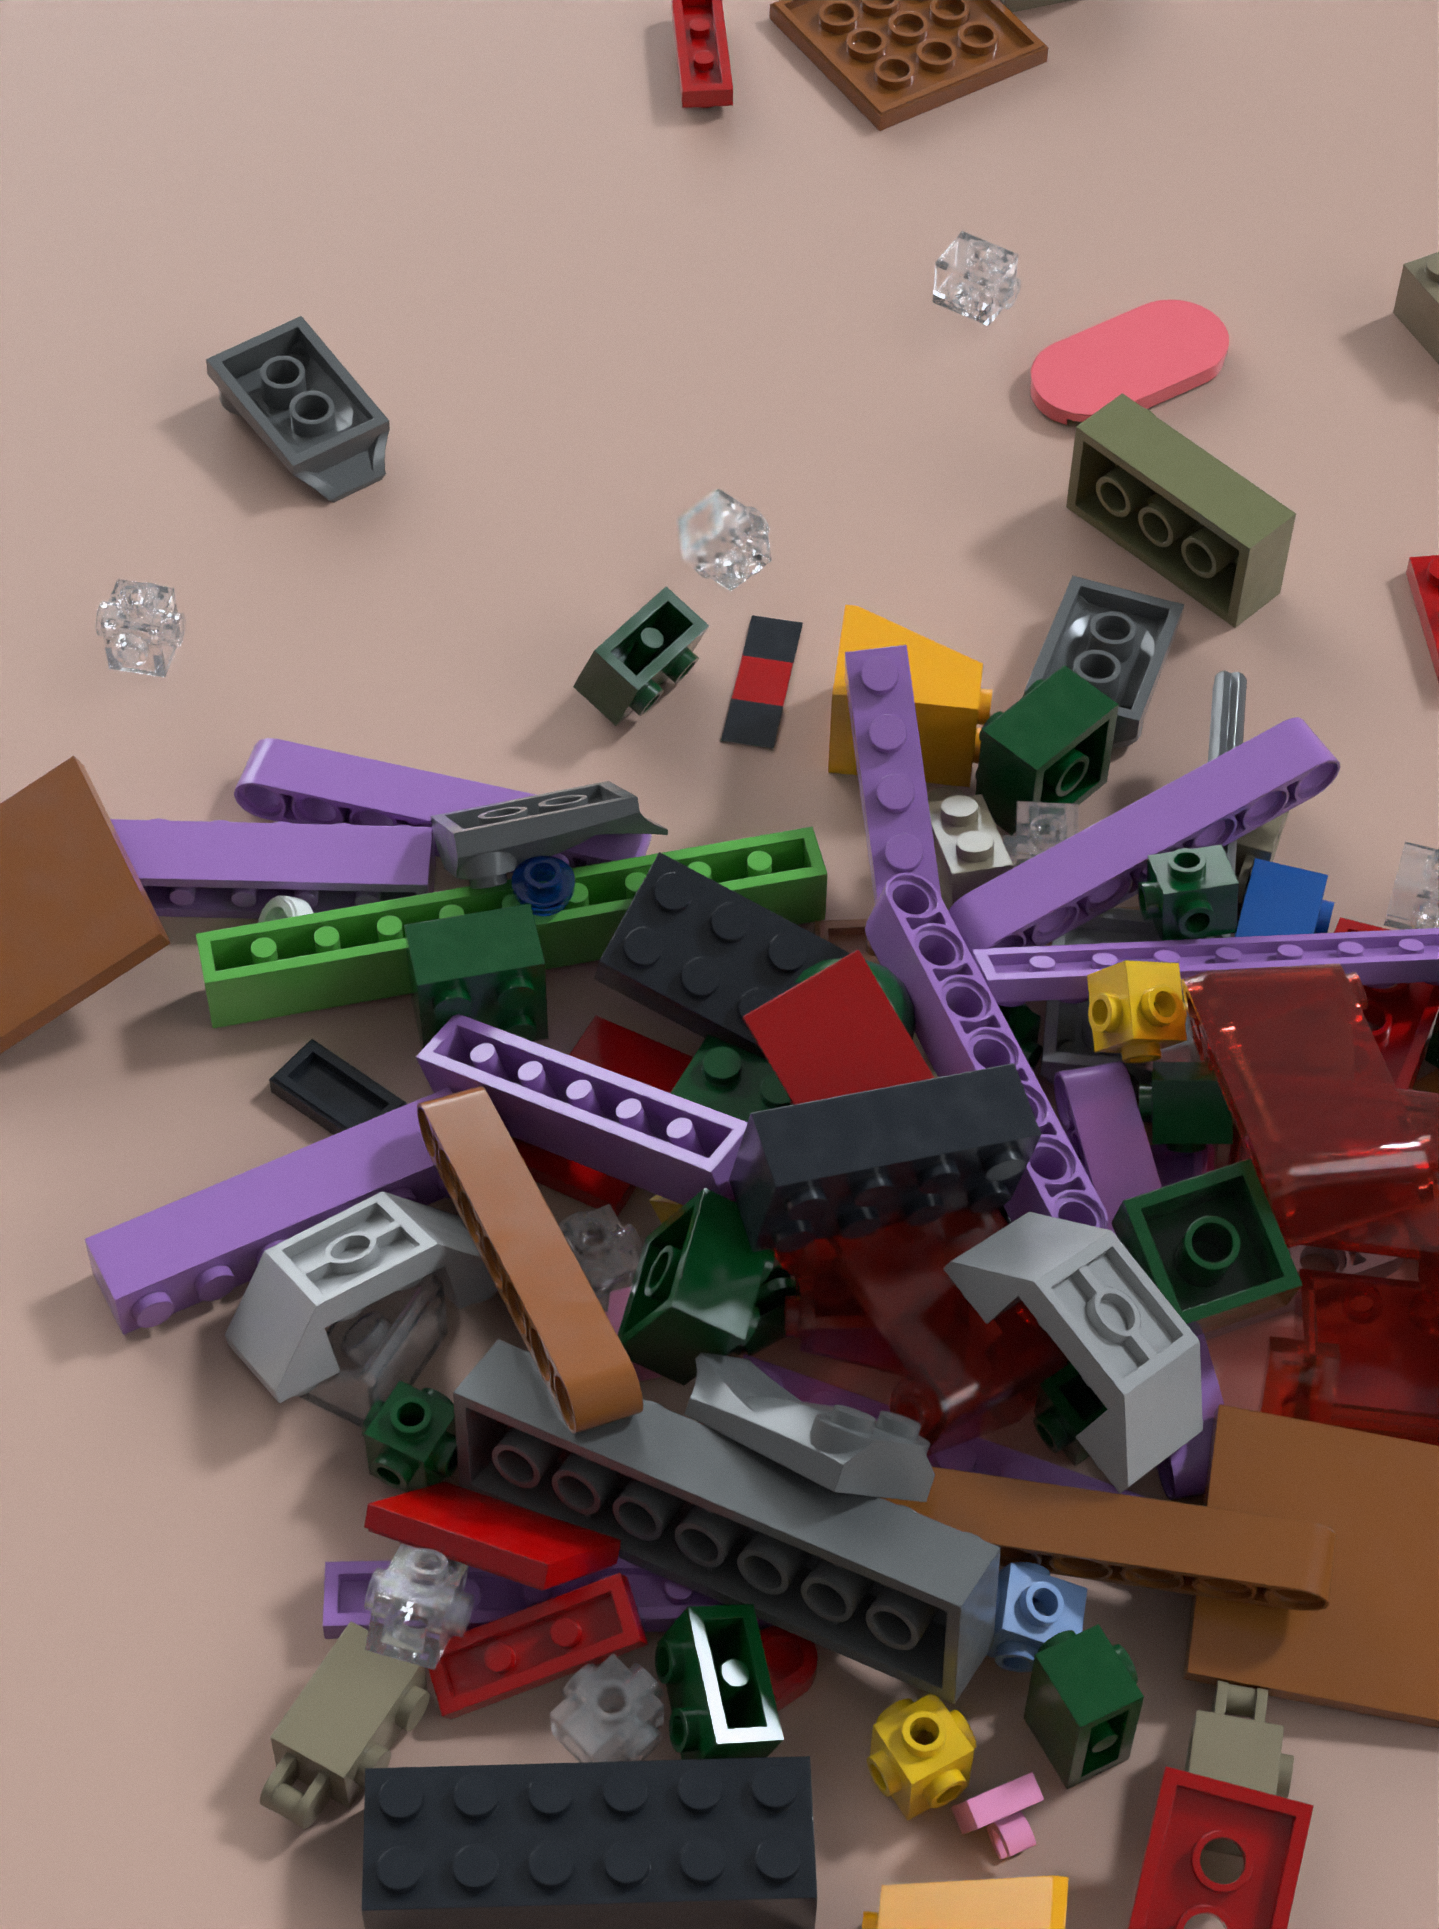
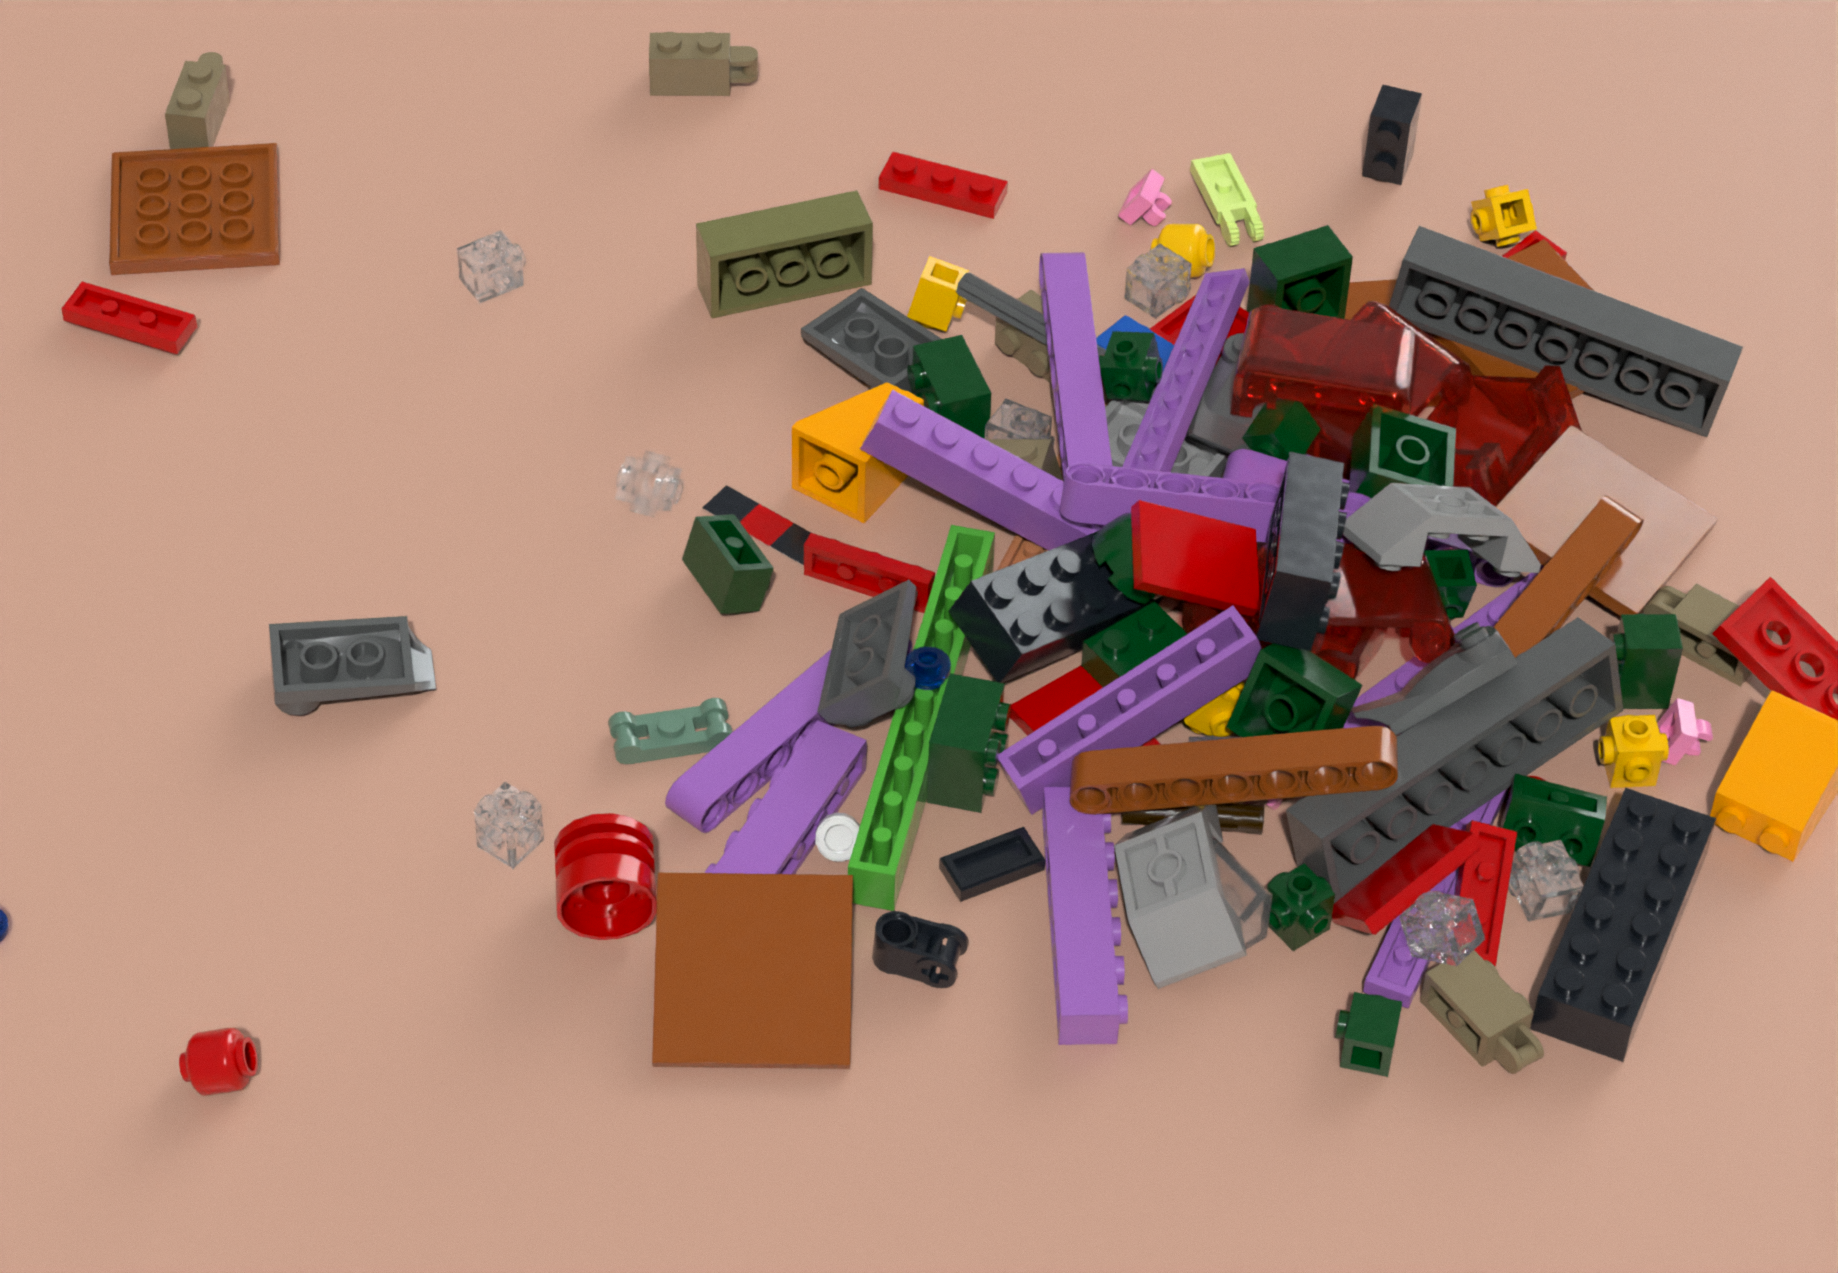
camera: 65 degrees left, 5 degrees down
(99, 724) = (605, 876): none -> red wheel
(149, 1074) = (915, 948): none -> black piece
(244, 1601) = (1369, 1033): none -> dark green brick
(374, 717) = (669, 732): none -> sand green plate
(728, 793) = (863, 569): none -> red plate
(1137, 1009) = (1222, 416): yellow brick -> none
(1140, 353) = (610, 232): coral tile -> none
(1233, 654) = (937, 296): none -> yellow brick

